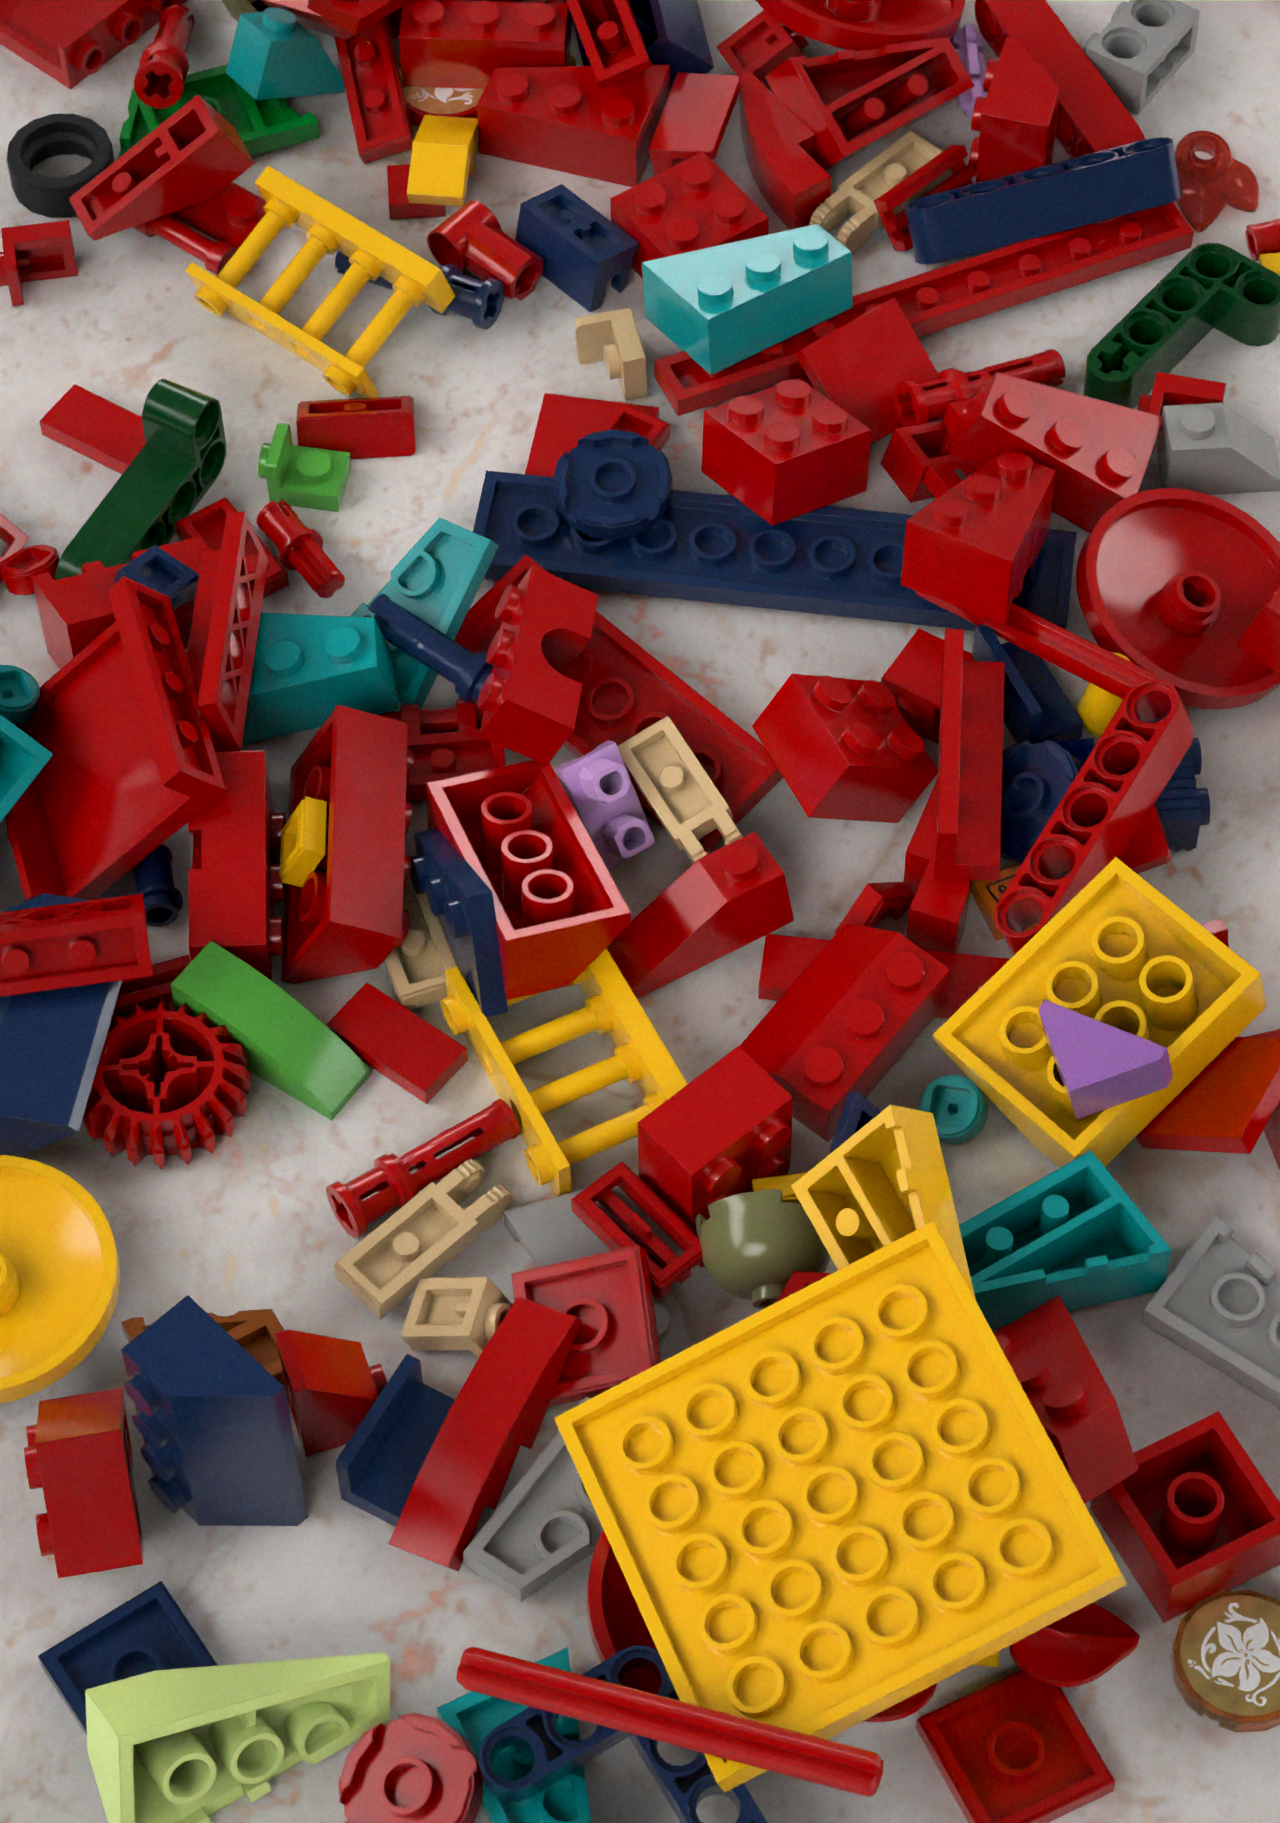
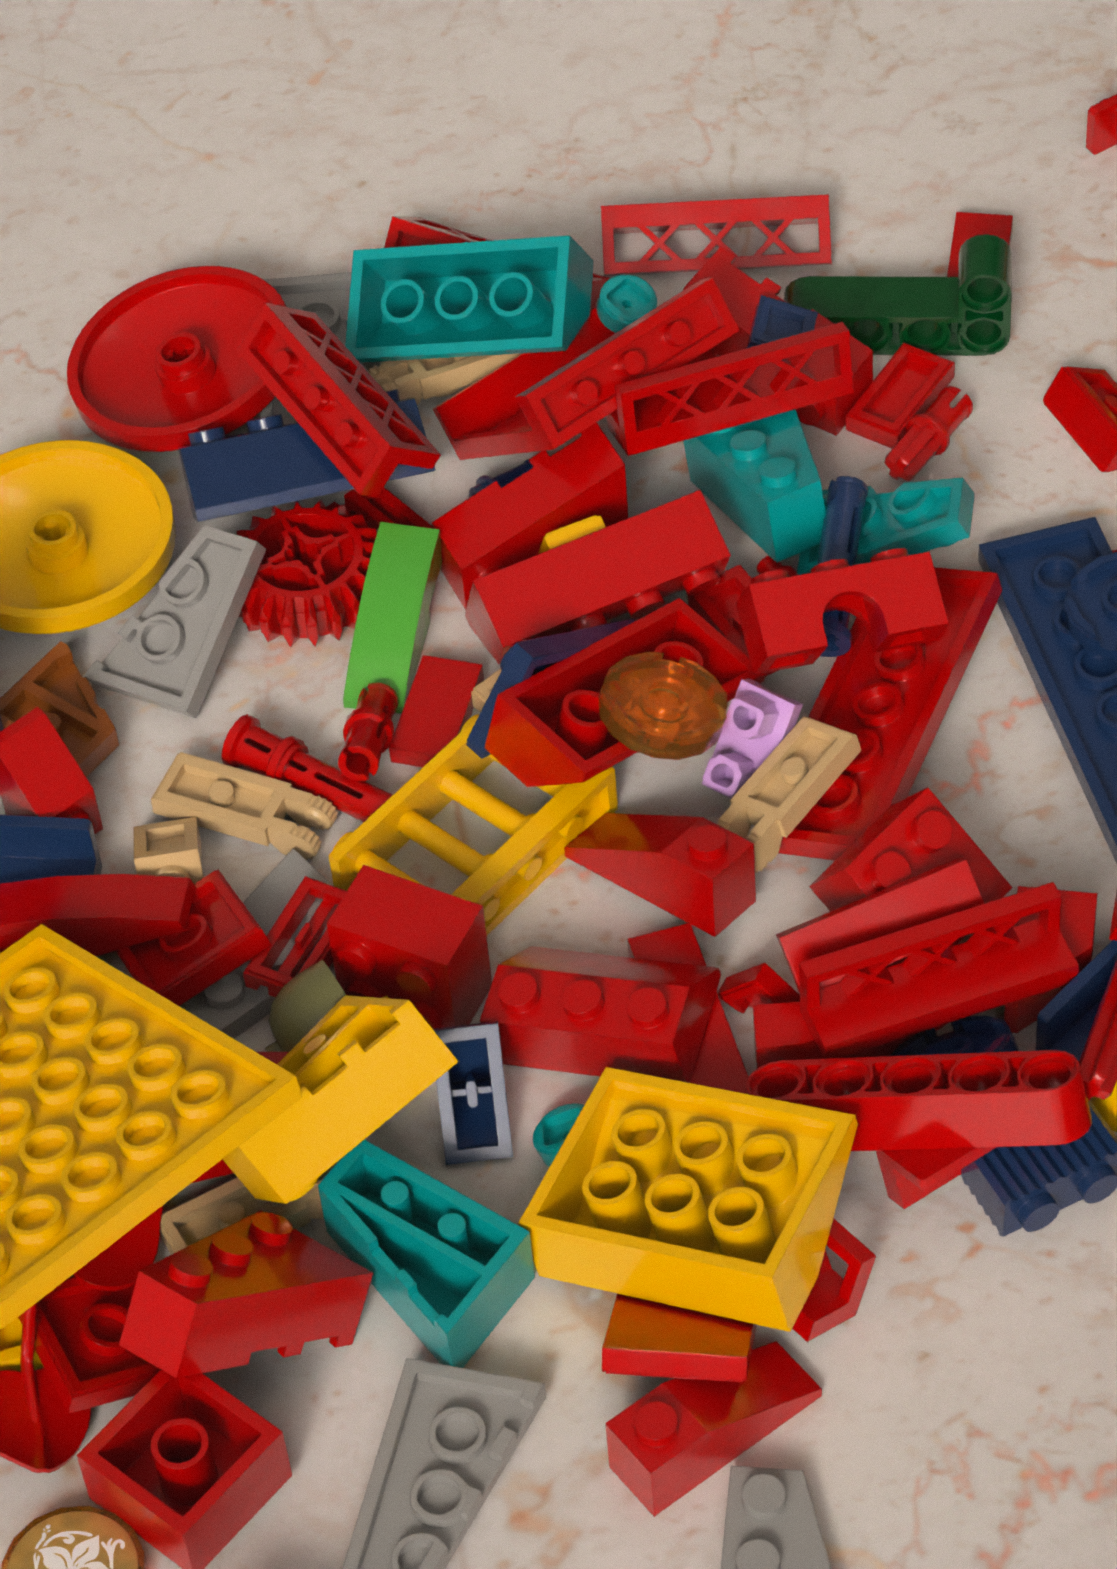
camera: 70 degrees right, 5 degrees down
(26, 563) = (786, 268): red tile -> none
(183, 1200) = (183, 632): none -> light grey wing
(303, 474) = (1018, 399): bright green bracket -> none
(406, 1096) = (368, 732): none -> red pin
(573, 832) = (663, 706): none -> clear orange tile
(908, 772) = (895, 908): none -> red tile
(1101, 1062) = (601, 1178): medium lavender slope -> none

